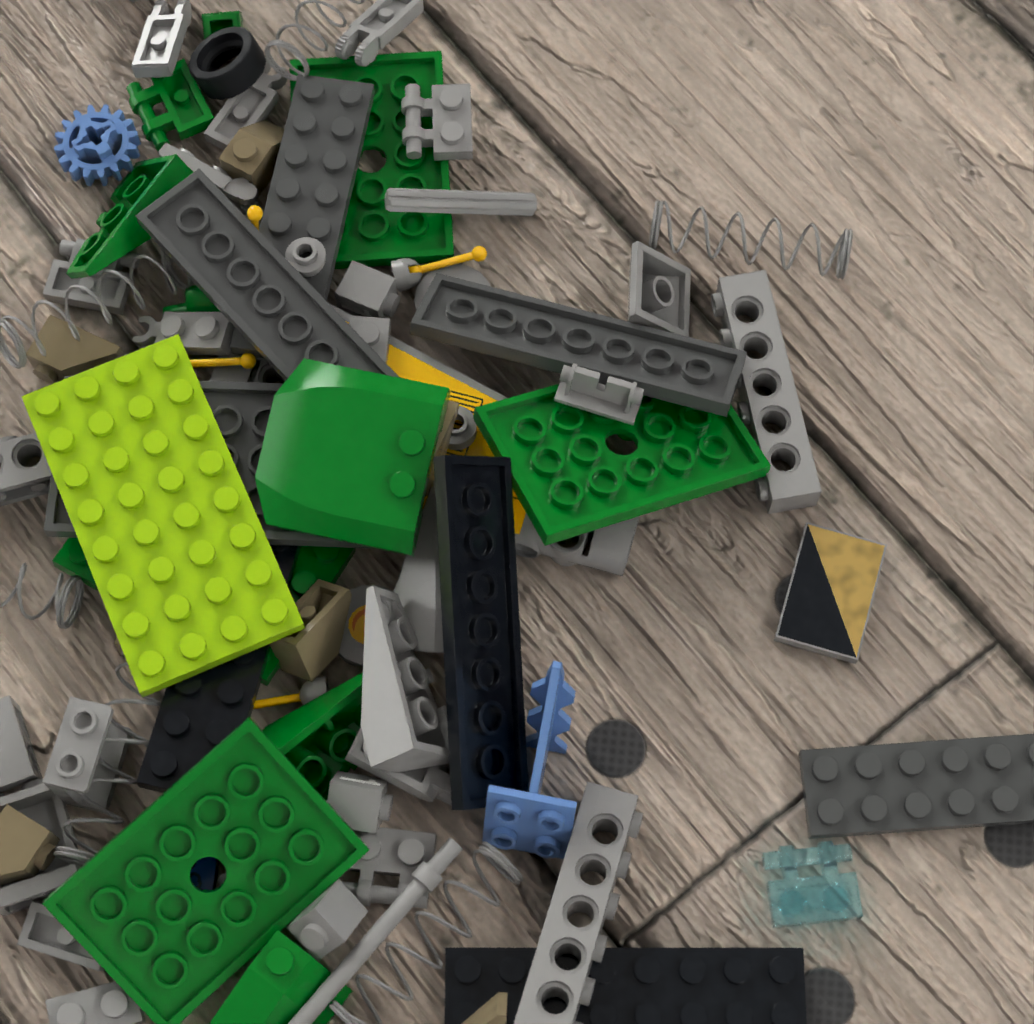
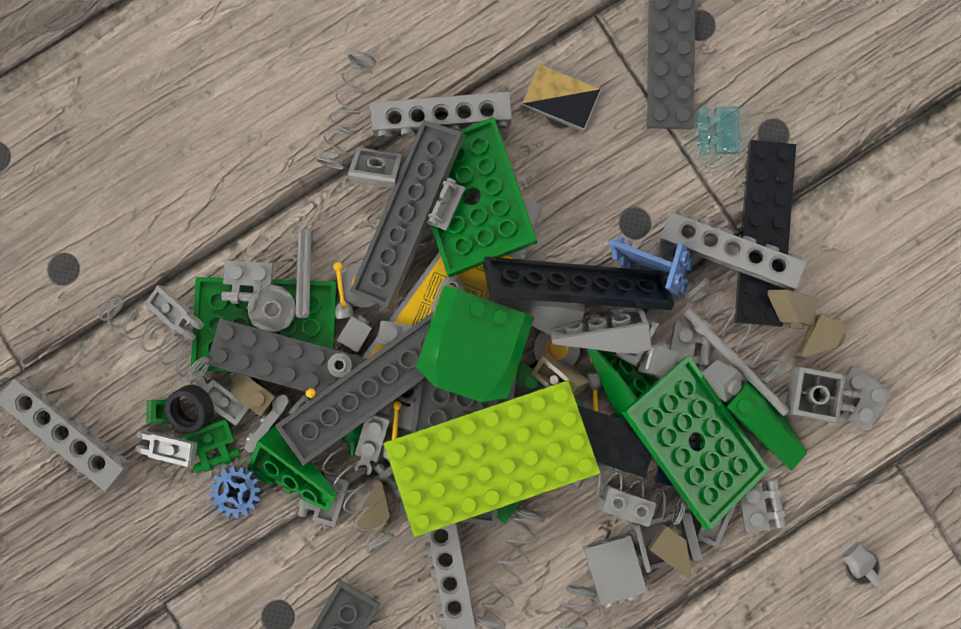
camera: 90 degrees left, 15 degrees up
(396, 155) = (271, 308): none -> light grey tile

